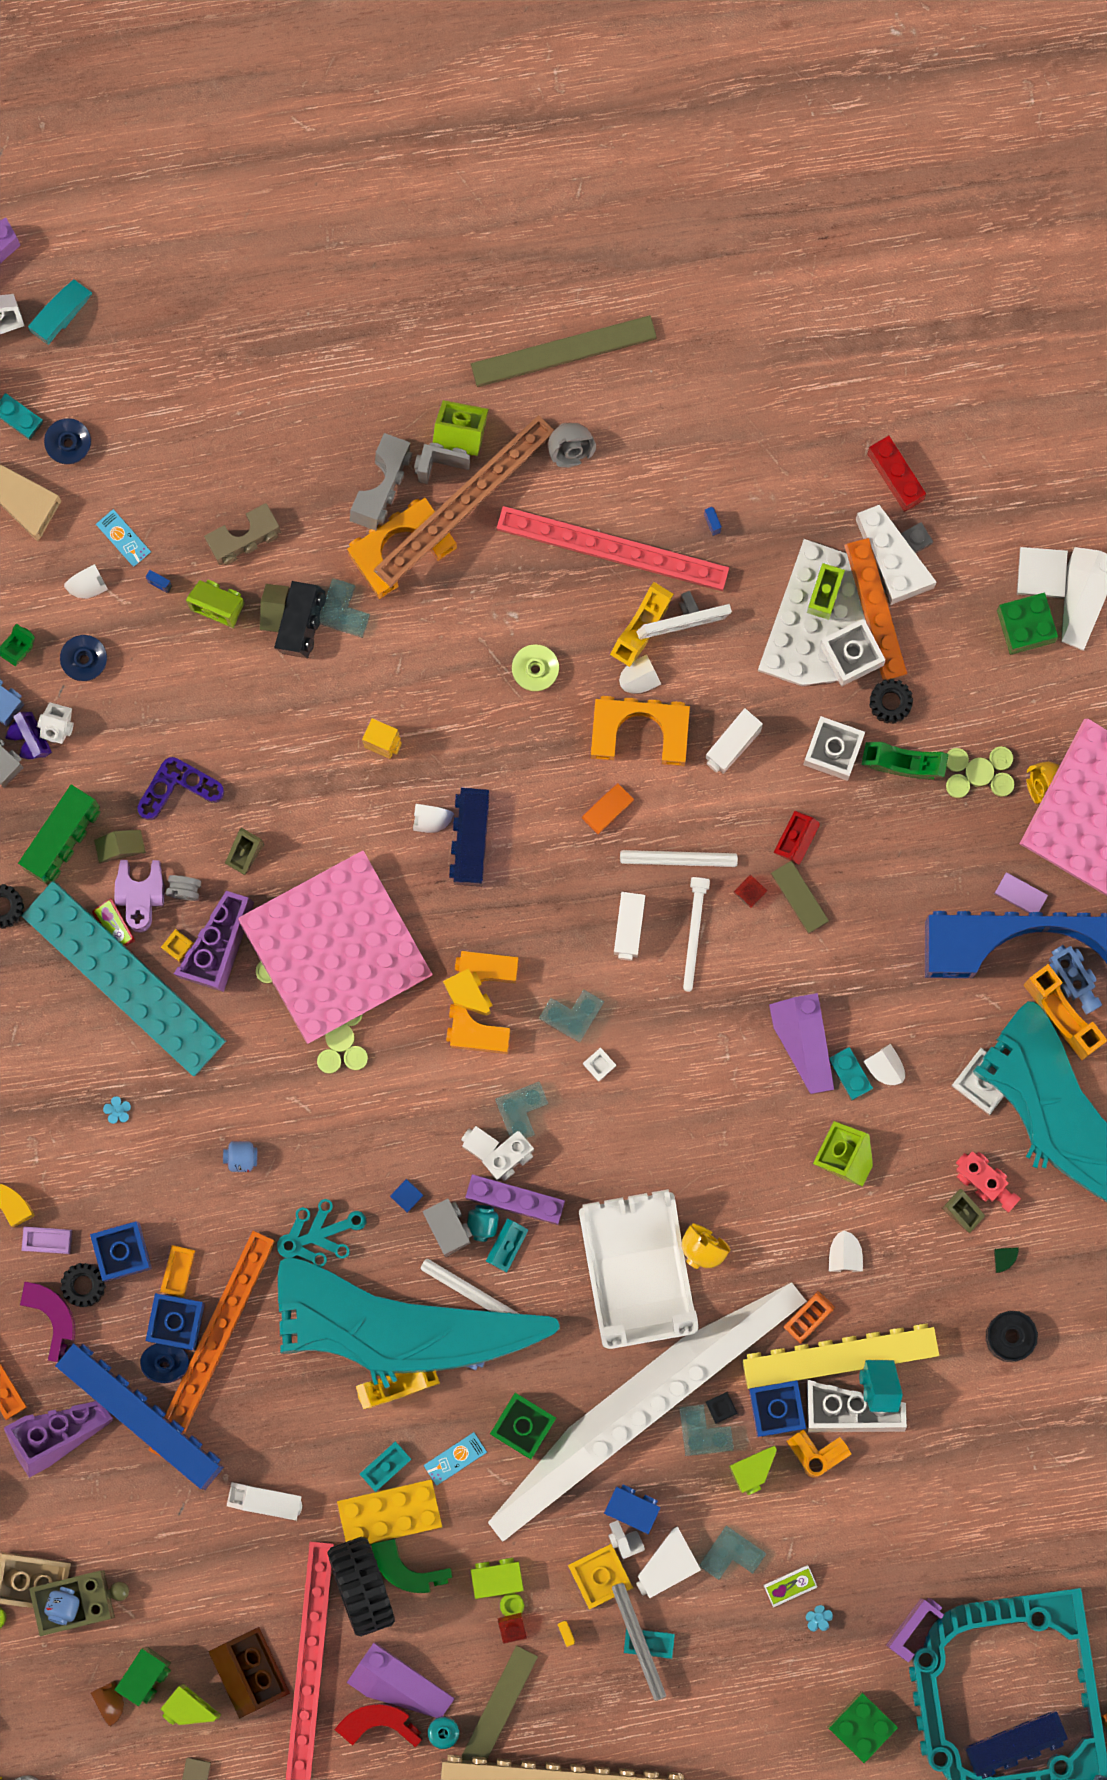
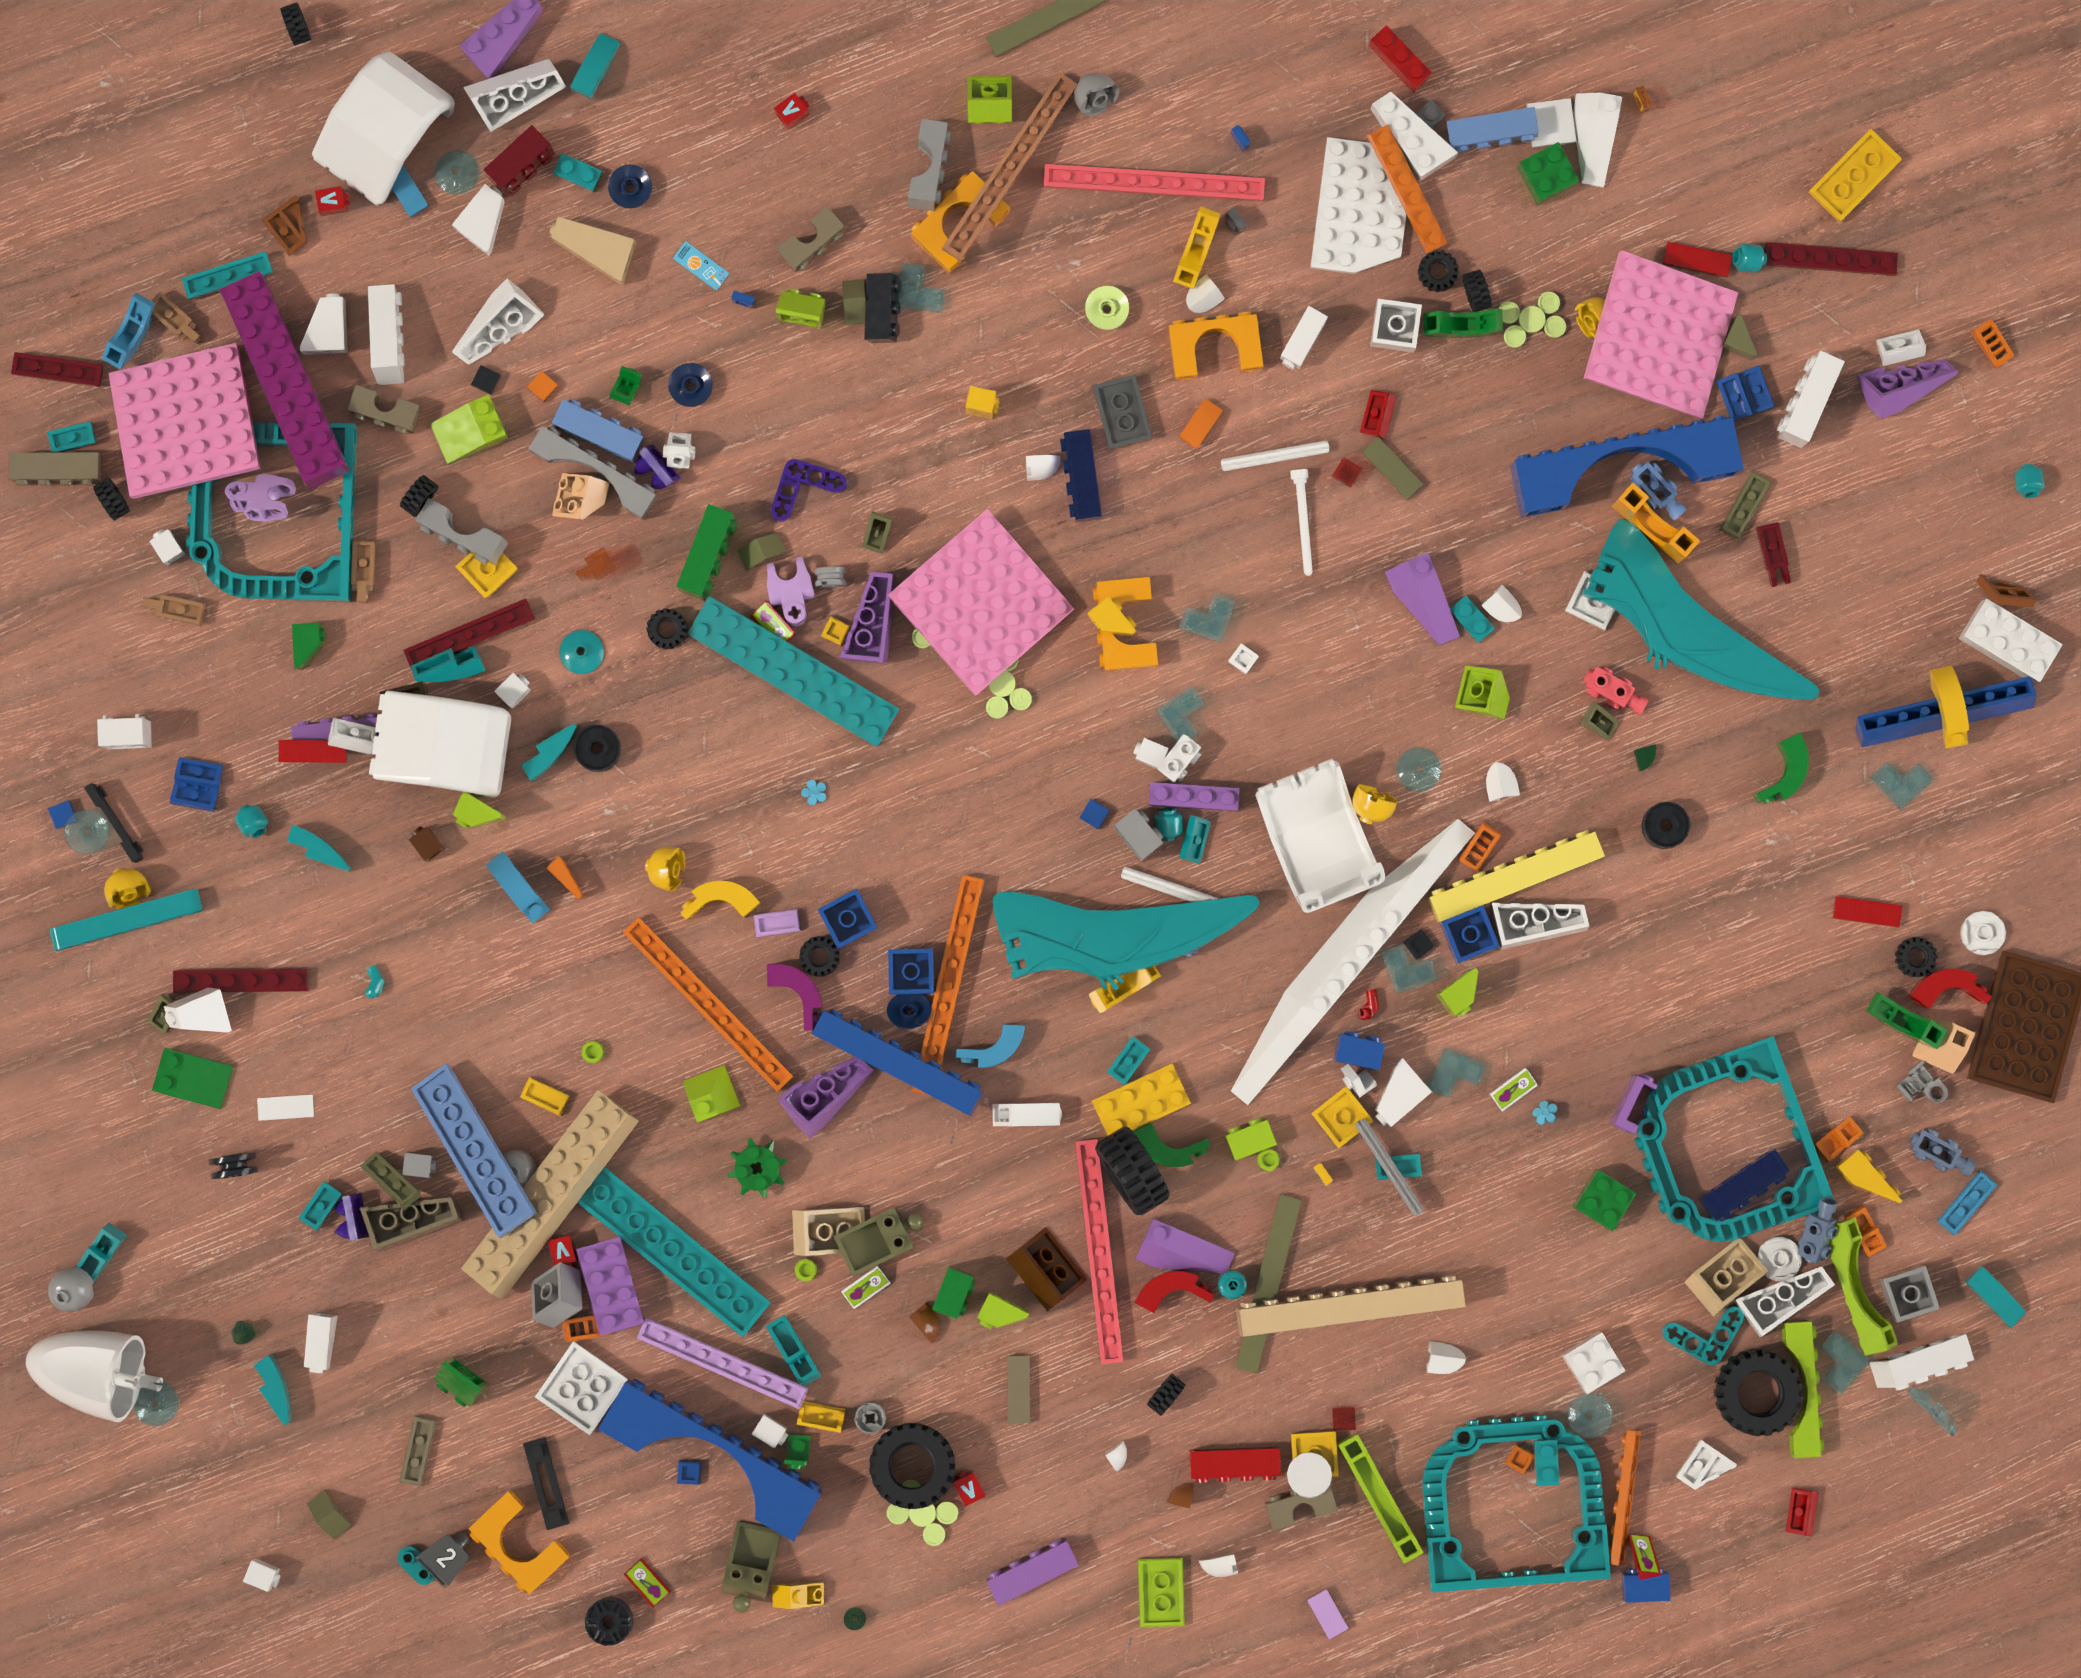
camera: 20 degrees left, 5 degrees up
(52, 1650) = (865, 1287): none -> slope
(62, 1606) = (867, 1246): medium blue head -> none
(86, 583) = (677, 315): white brick -> none
(177, 1271) = (902, 925): light orange tile -> none
(240, 1156) = (936, 810): medium blue head -> none
(252, 397) = (792, 110): none -> red brick
(254, 1426) = (1001, 1051): none -> dark azure arch
(317, 1235) = (1021, 866): teal plant -> none
(437, 454) = (974, 127): light grey bracket -> none
(455, 1458) = (1189, 1040): medium azure sticker -> none
(512, 1628) = (1273, 1179): clear red plate -> none
(523, 1426) = (1245, 998): green brick -> none
(527, 779) = (1122, 412): none -> dark grey plate
(629, 925) = (1244, 526): white slope -> none
(655, 1465) = (1371, 1007): none -> red arm
(684, 621) = (1234, 237): white tile -> none
(756, 1233) = (1418, 781): none -> clear light blue dish
(825, 591) = (1359, 182): lime brick -> none
(827, 1456) = (1523, 967): light orange piece -> none
(852, 652) = (1395, 233): white brick -> none
(881, 1386) = (1559, 894): teal brick -> none
(927, 730) = (1477, 290): none -> black tyre
(978, 566) = (1493, 129): none -> medium blue brick
(1020, 894) = (1592, 423): lavender tile -> none

